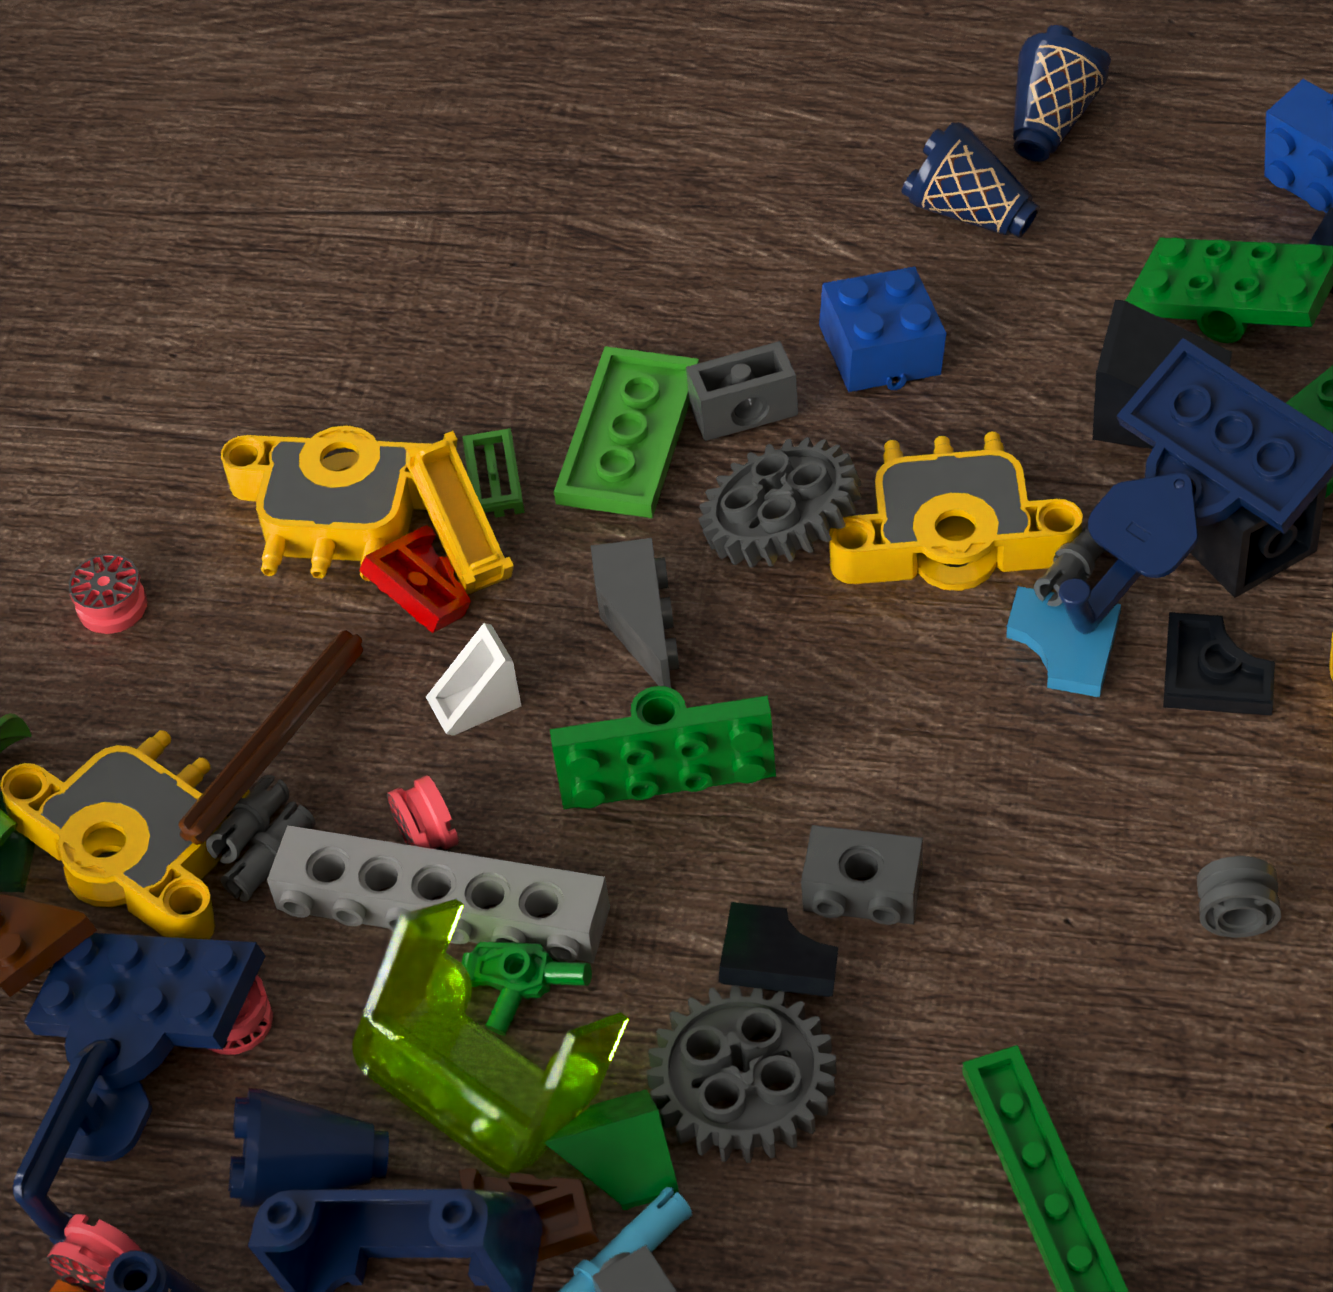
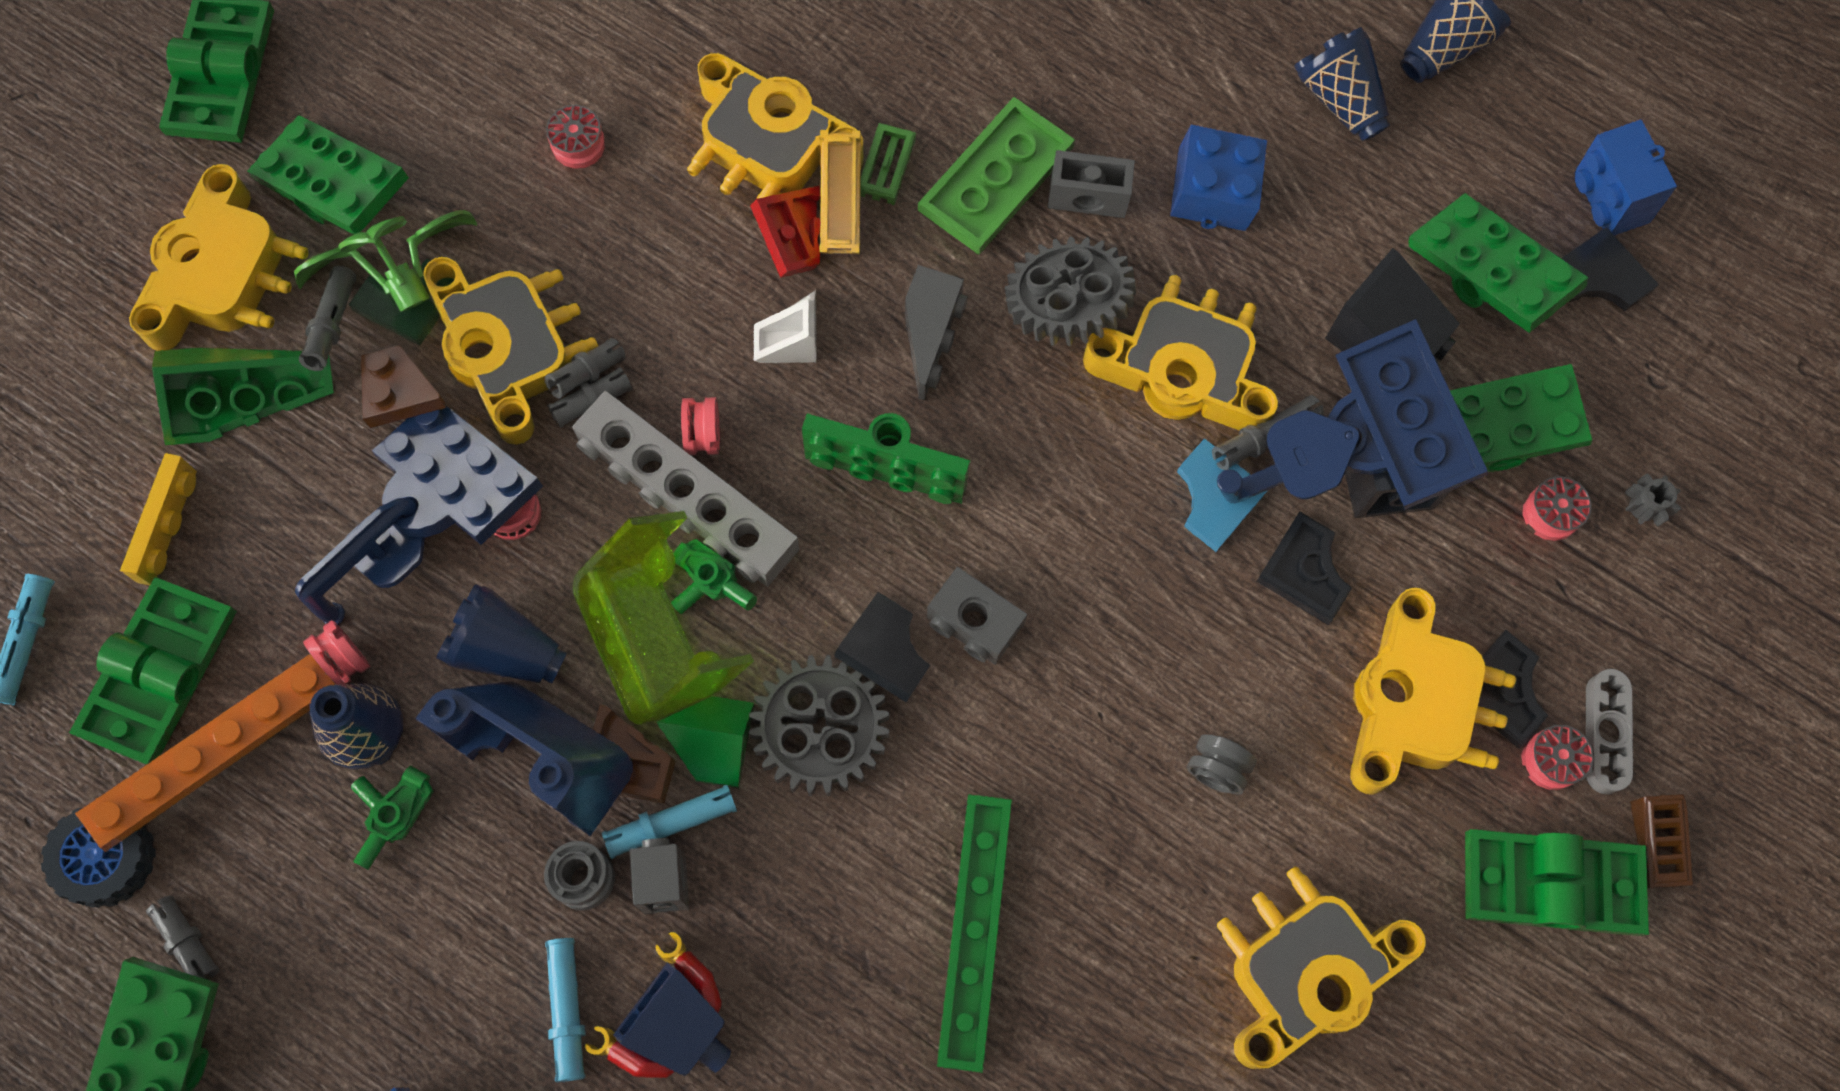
camera: 15 degrees right, 20 degrees up
(270, 738) = (627, 313): reddish brown axle -> none

